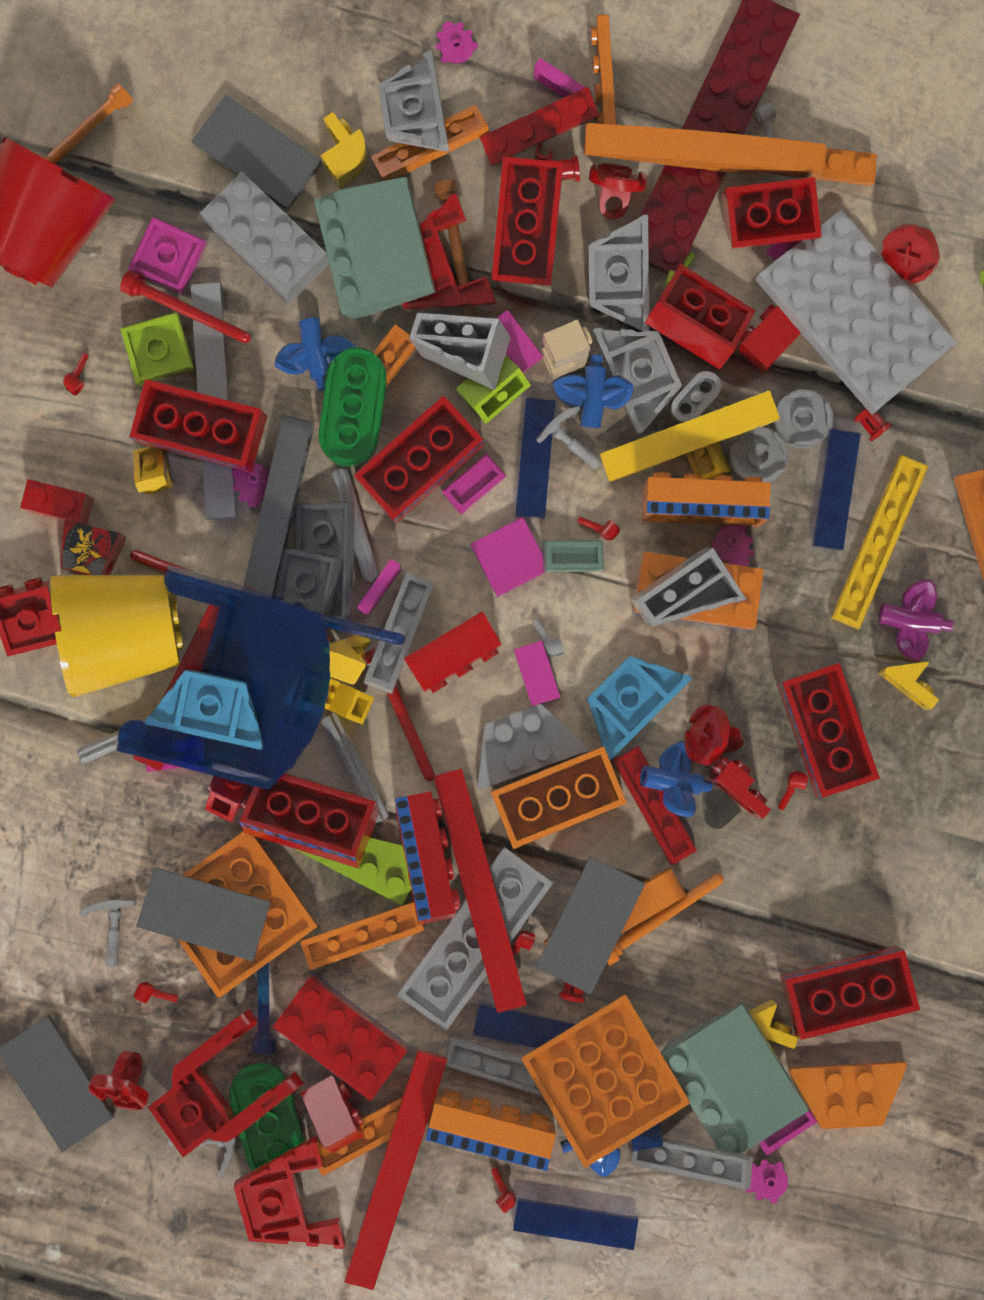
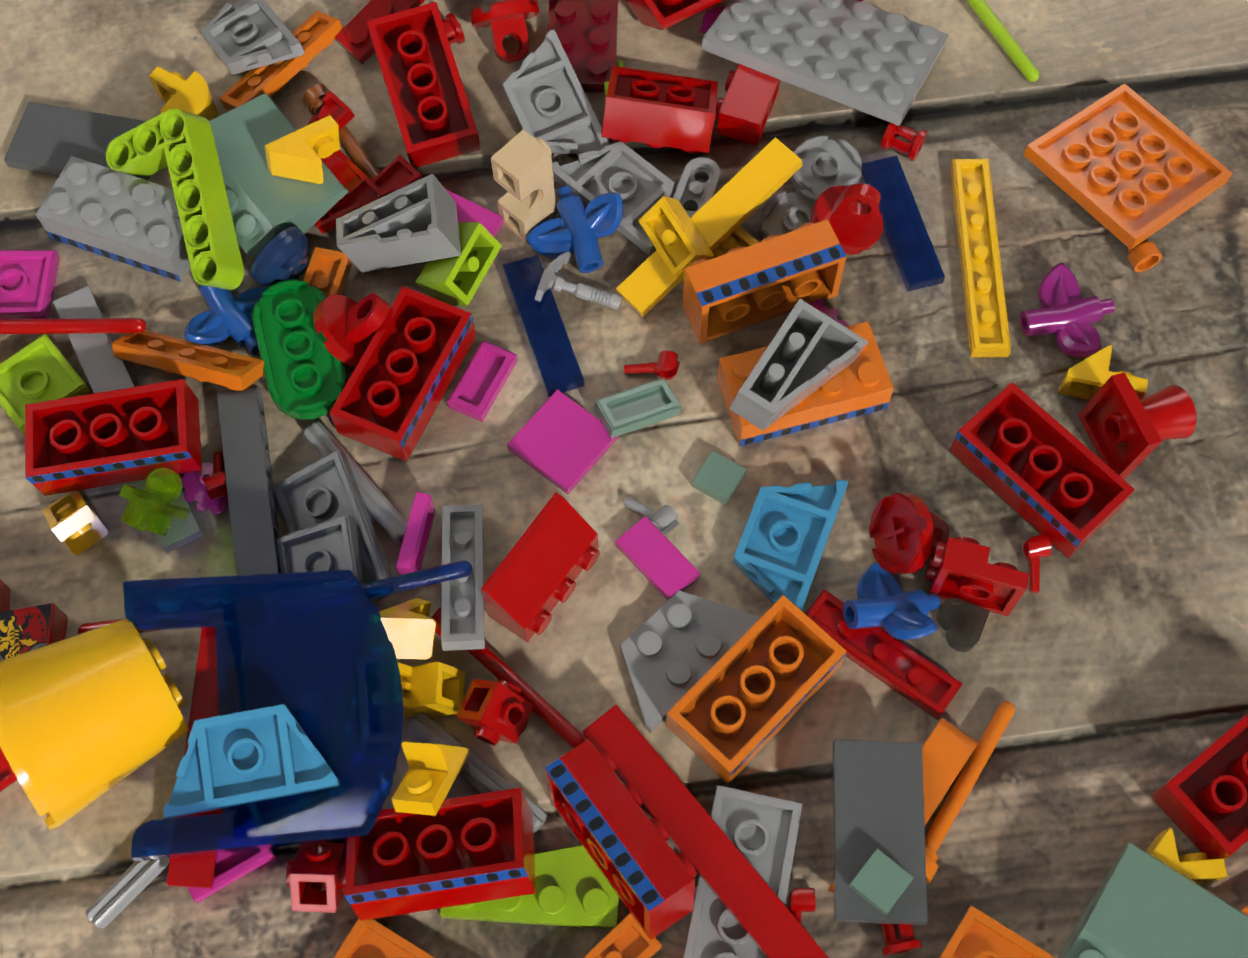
camera: 25 degrees left, 20 degrees down
(210, 491) = (152, 507): none -> clear neon green hips
(257, 488) = (216, 483): none -> red hand
(272, 382) = (189, 359): none -> orange plate
(321, 765) = (429, 776): none -> yellow slope
(324, 248) = (189, 151): none -> lime beam
(367, 329) = (281, 258): none -> dark blue piece
(386, 740) = (495, 711): none -> red brick
(394, 407) = (349, 324): none -> red tile
(406, 251) = (300, 152): none -> yellow slope
(573, 959) = (881, 882): none -> sand green tile
(606, 632) = (719, 477): none -> sand green tile
(659, 436) = (674, 235): none -> yellow slope
(795, 472) = (852, 215): none -> red tile
(905, 726) = (1131, 427): none -> red plant

